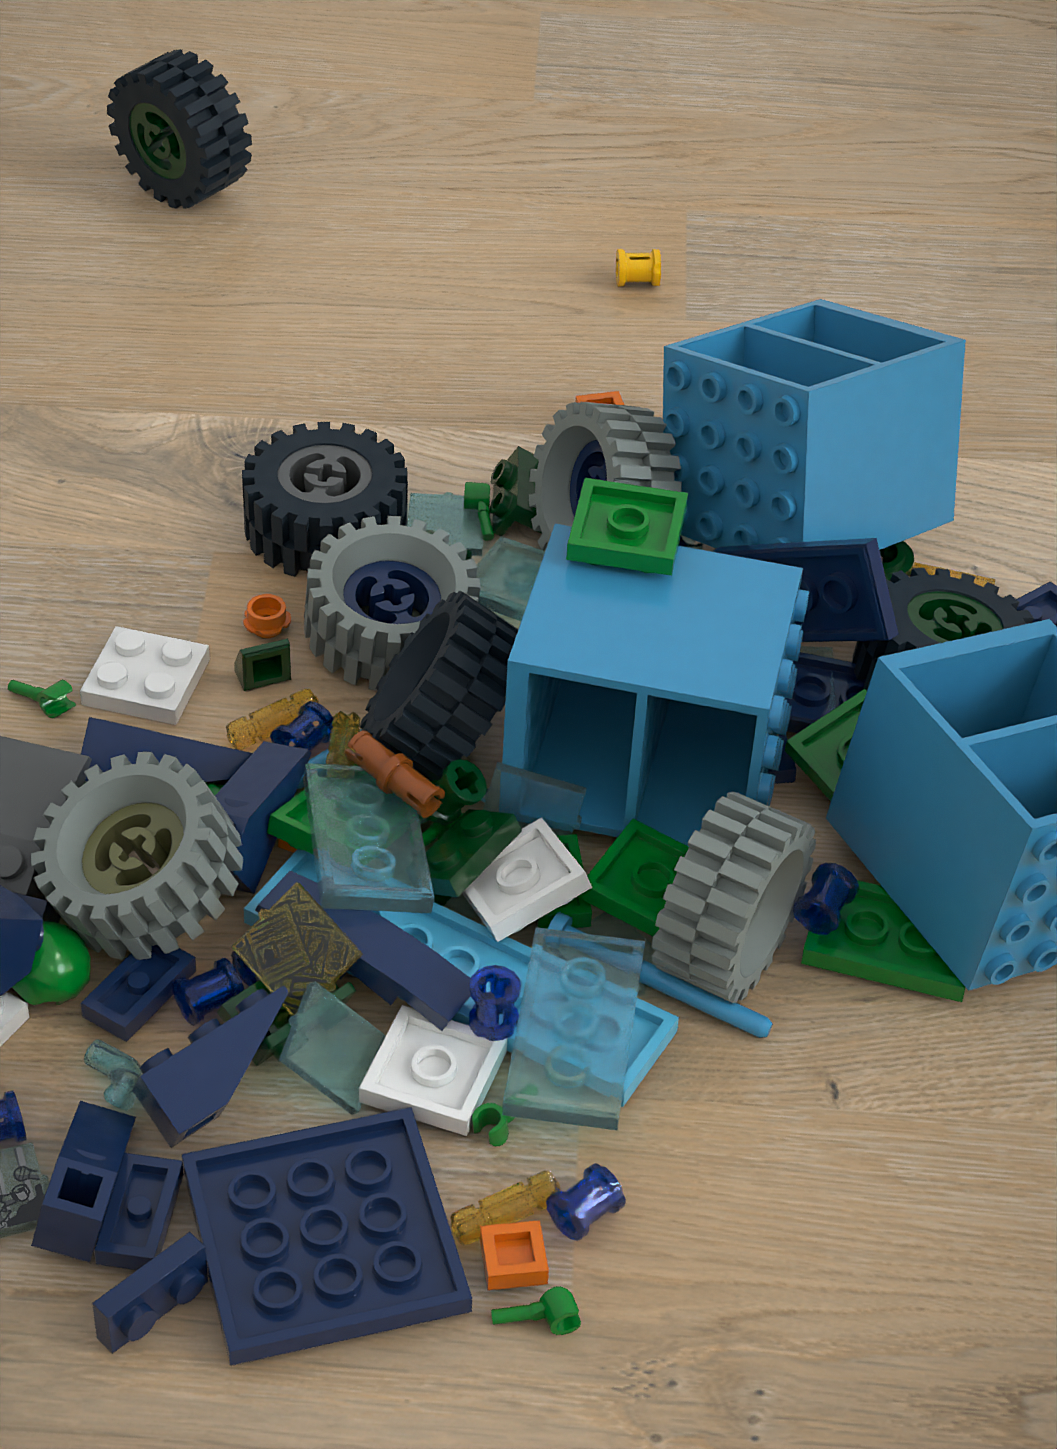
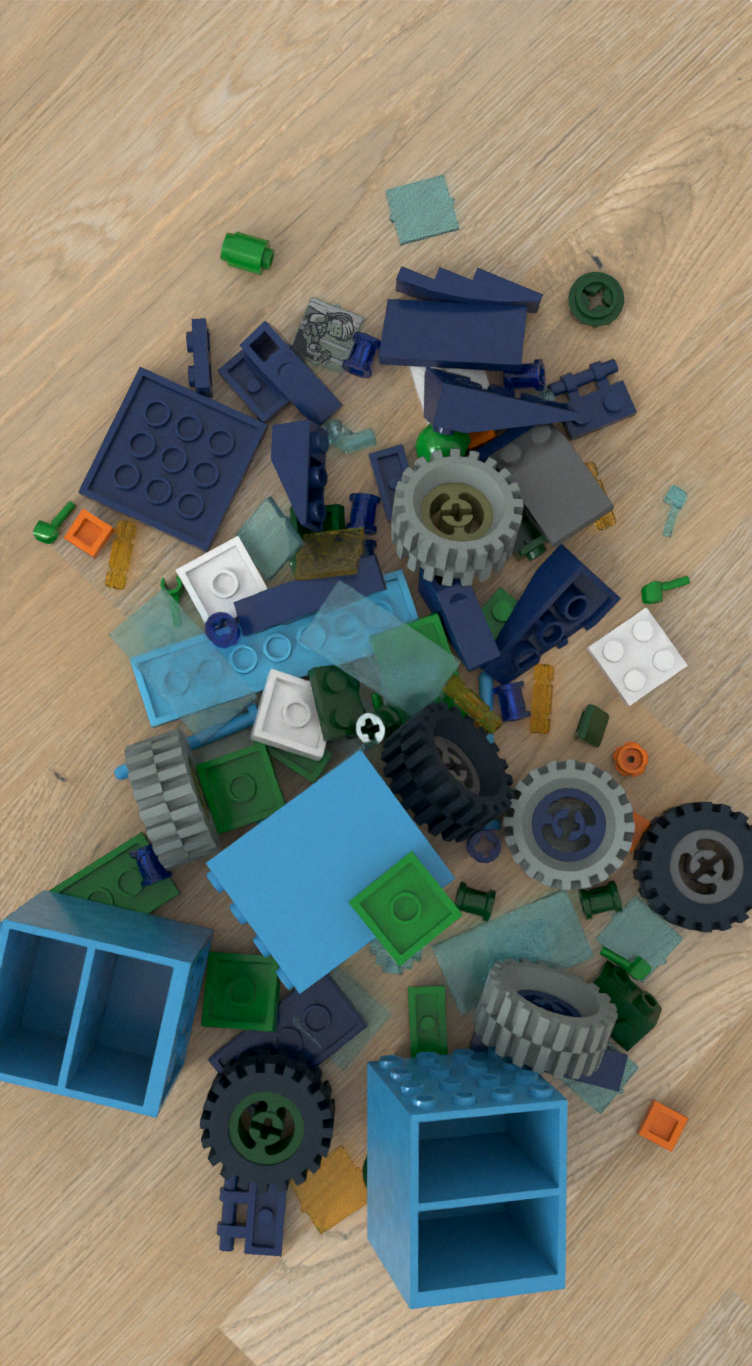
camera: 135 degrees right, 40 degrees up
(394, 773) = (406, 694): dark orange pin -> none
(572, 1201) = (88, 590): clear blue bush -> none
(844, 586) = (353, 1050): dark blue tile -> none

